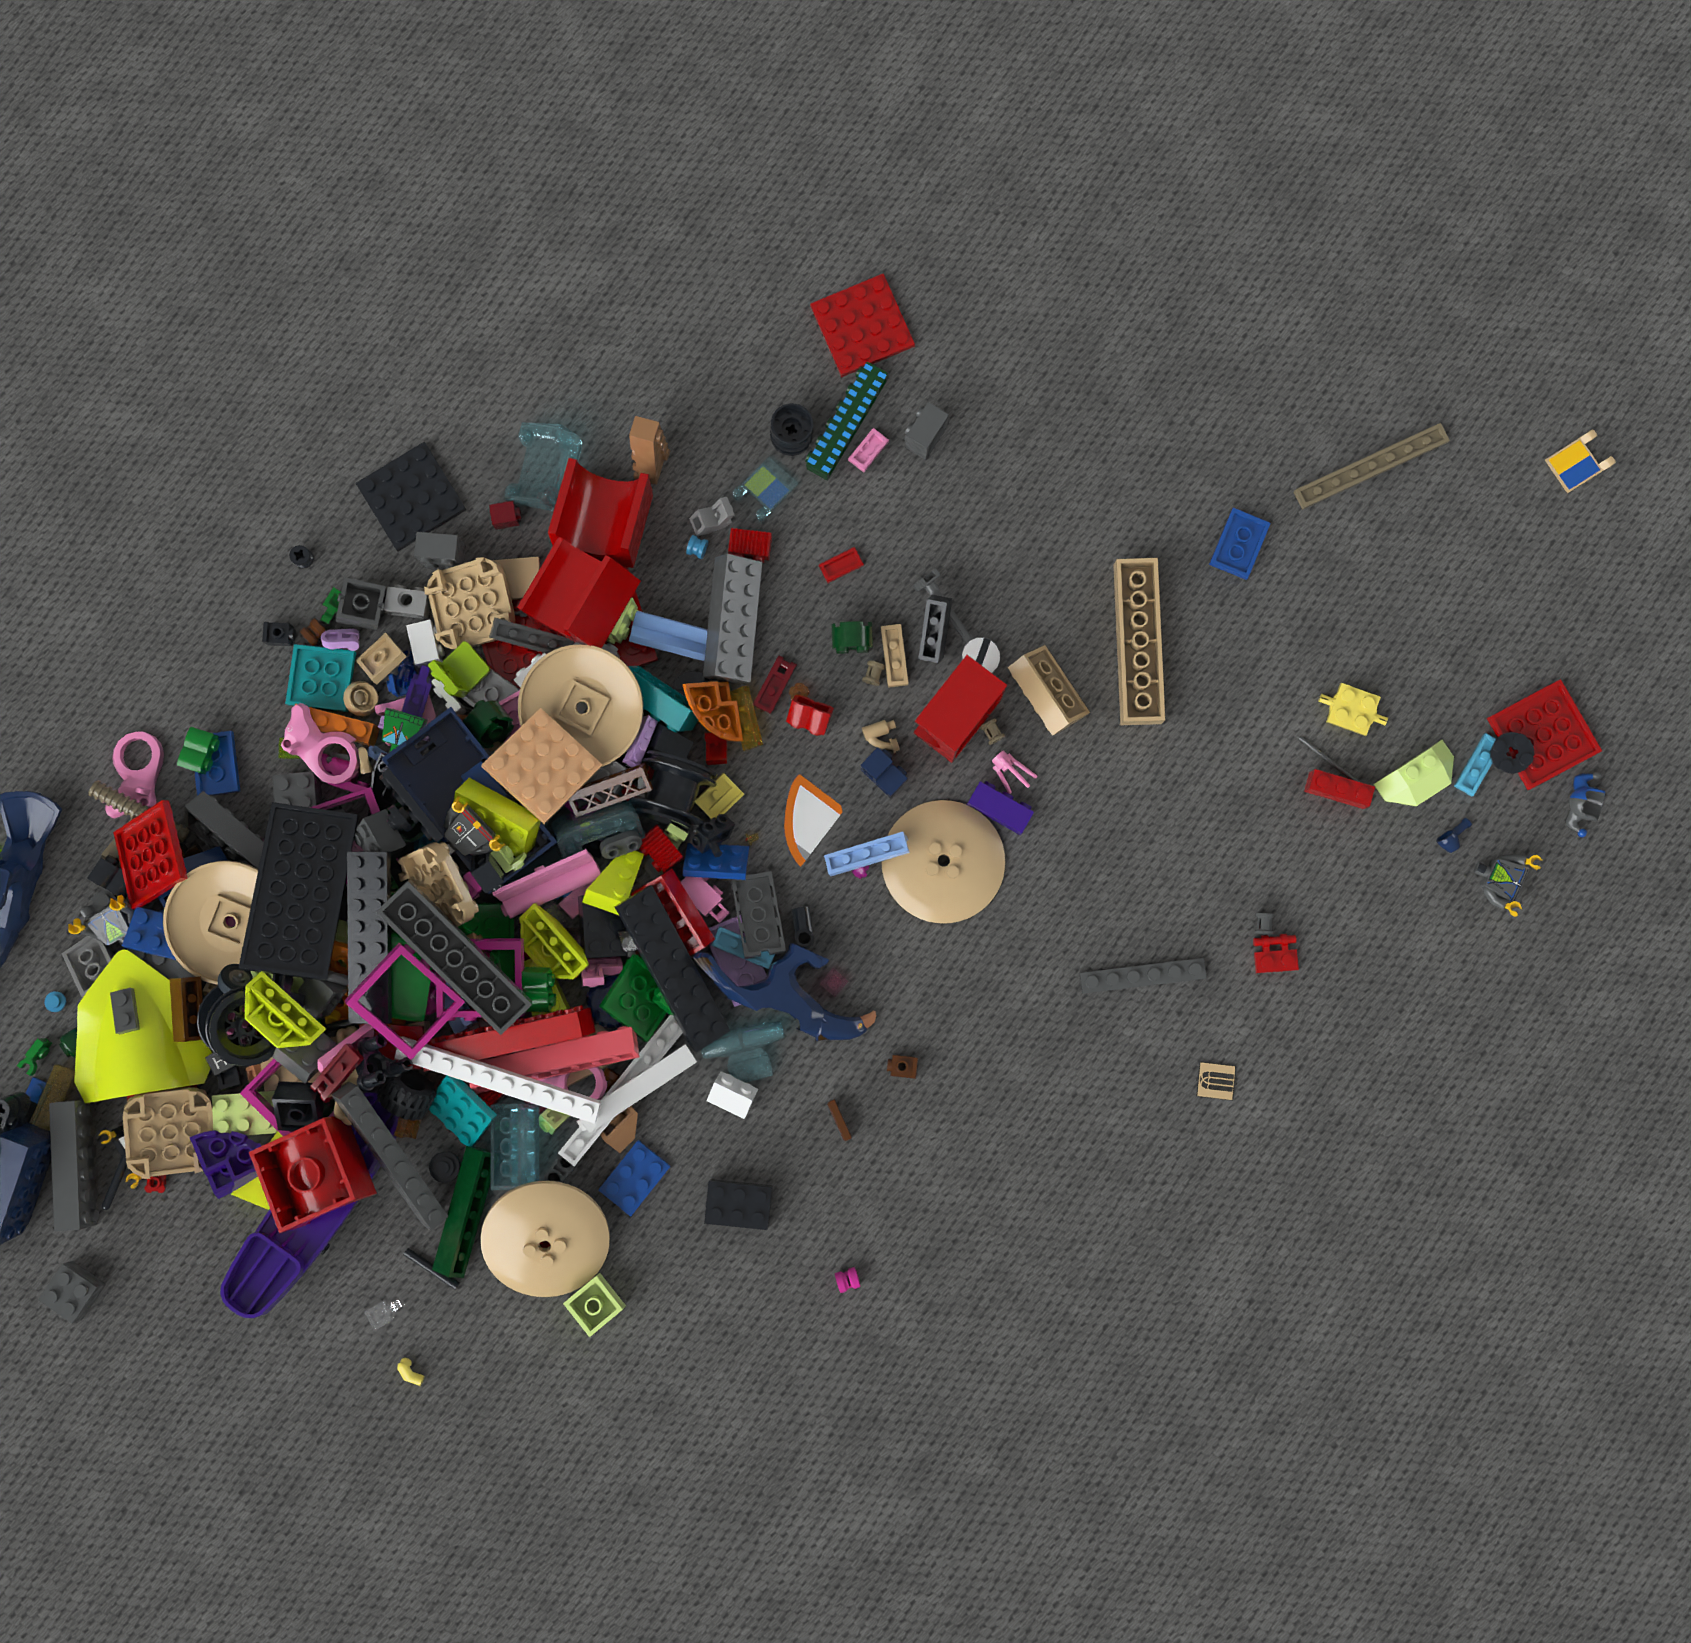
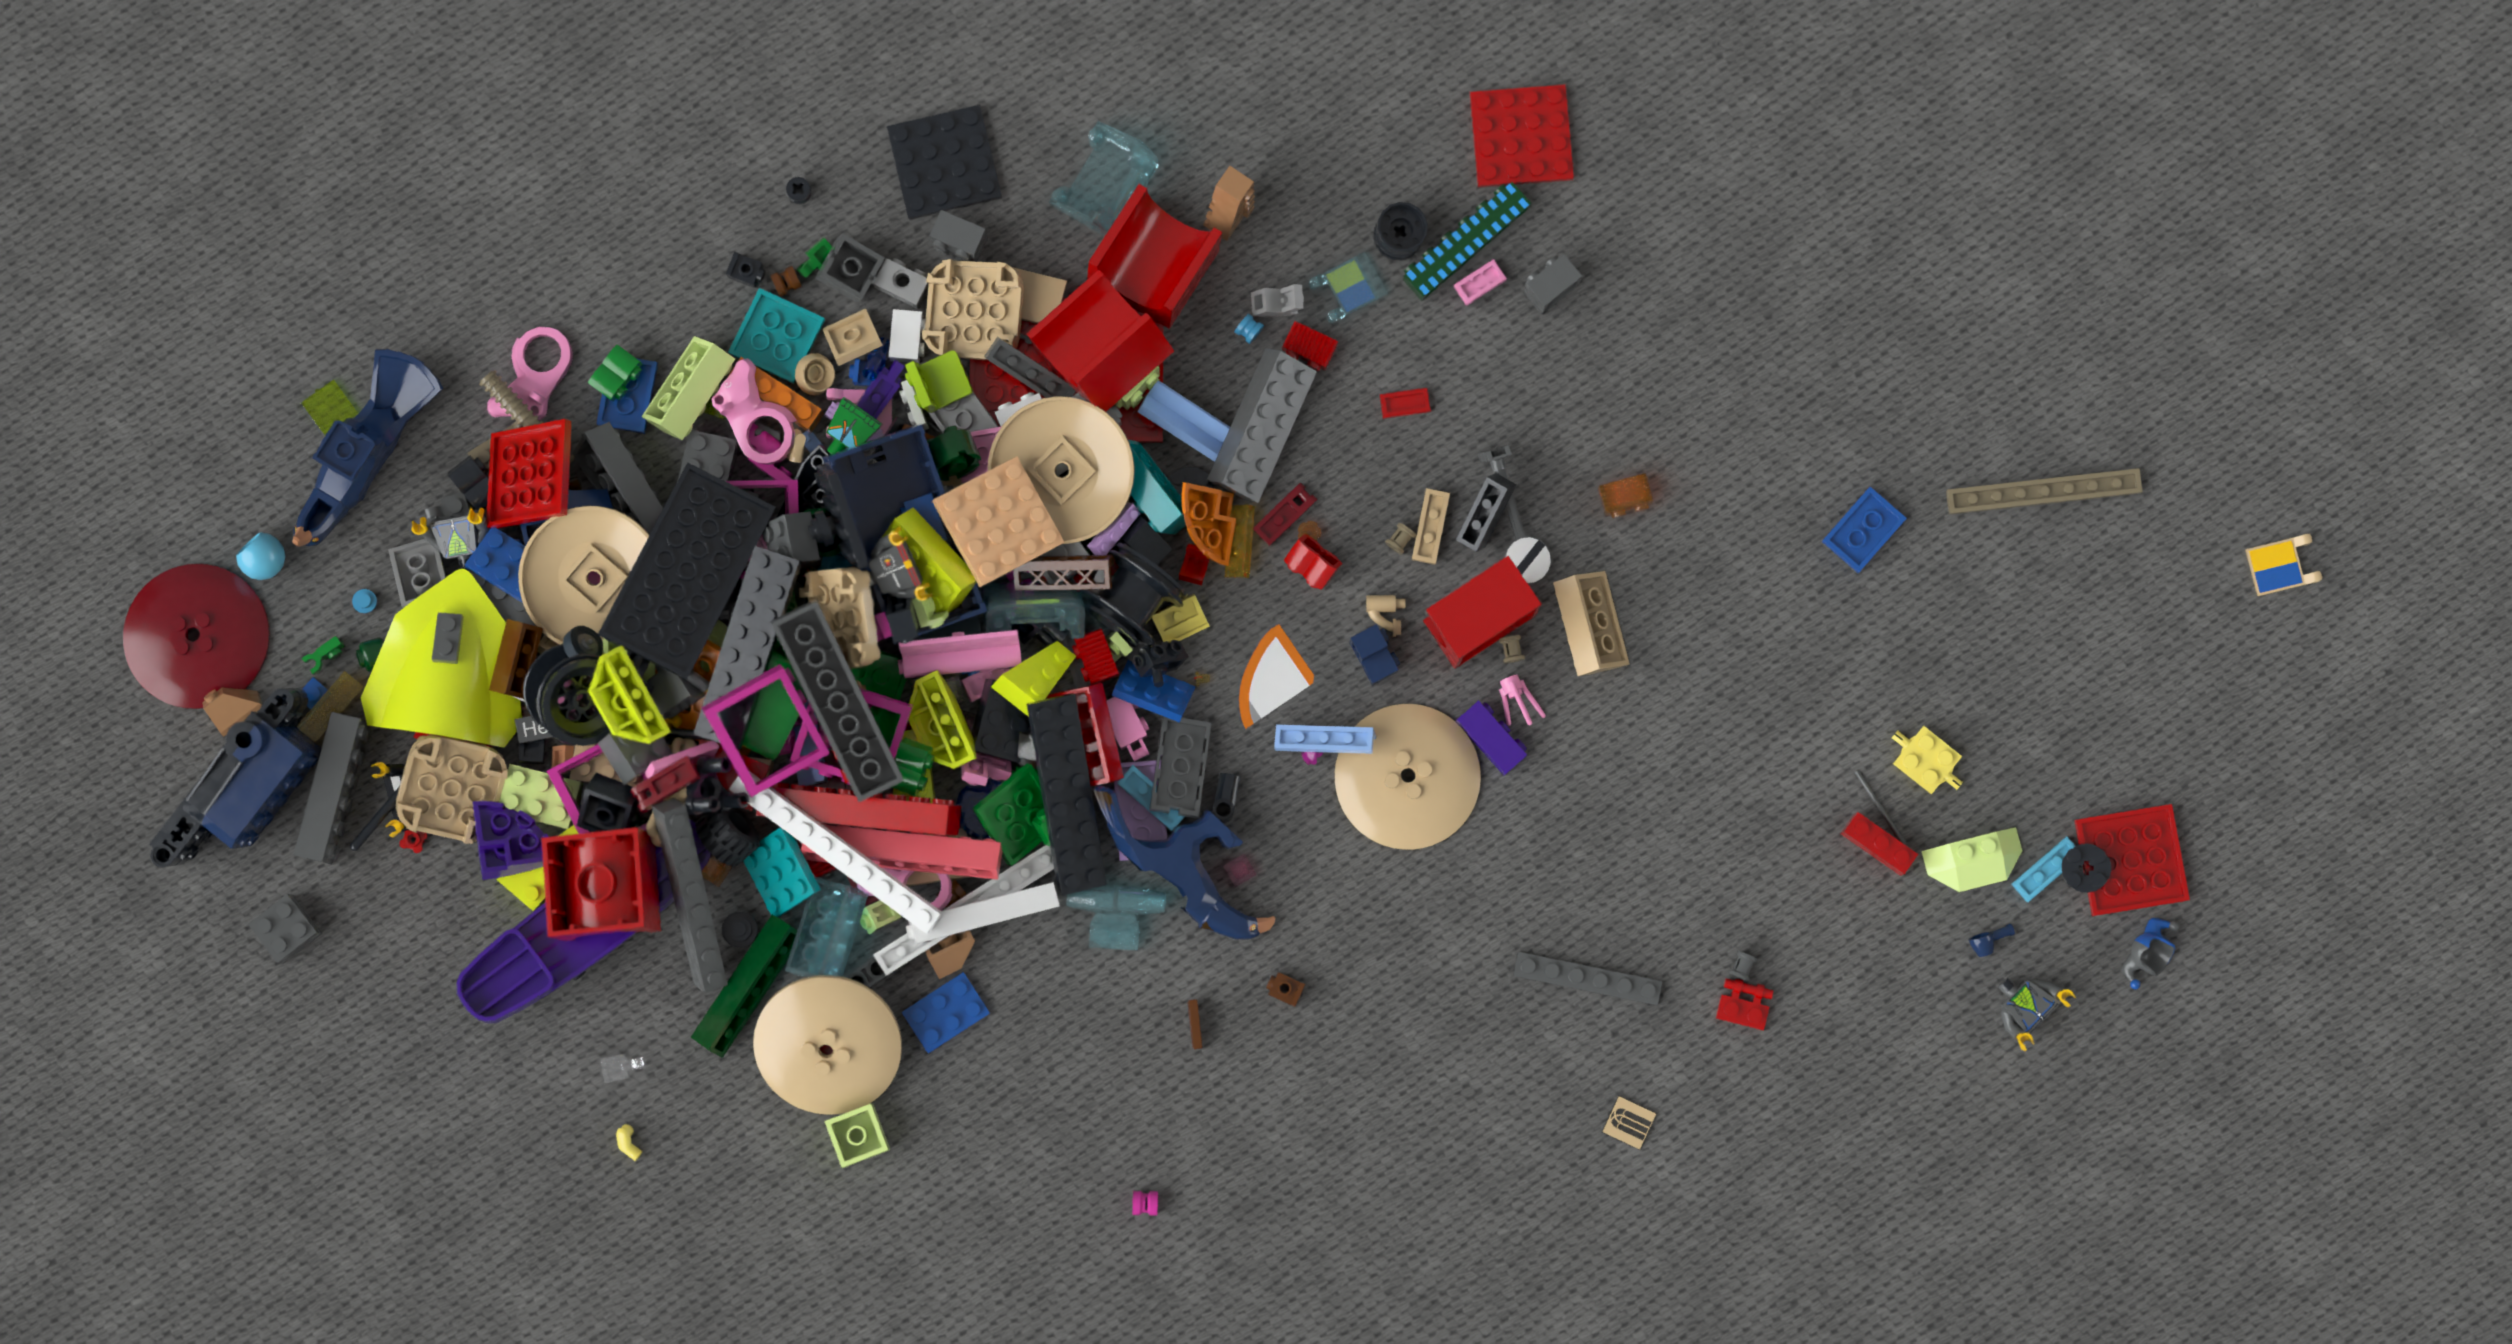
camera: 10 degrees right, 0 degrees up
(261, 742) = (688, 388): none -> yellowish green brick
(341, 639) = (814, 300): lavender plate -> none
(428, 1267) = (686, 1035): black bar -> none
(505, 515) = (1044, 220): dark red brick -> none
(620, 844) = (1054, 637): dark grey plate -> none
(732, 1094) = (1085, 956): white brick -> none
(738, 1204) = (1052, 1079): black brick -> none
(852, 636) = (1389, 489): dark green brick -> none
(1040, 579) = (1625, 495): none -> clear orange brick
(1139, 641) = (1711, 603): tan brick -> none

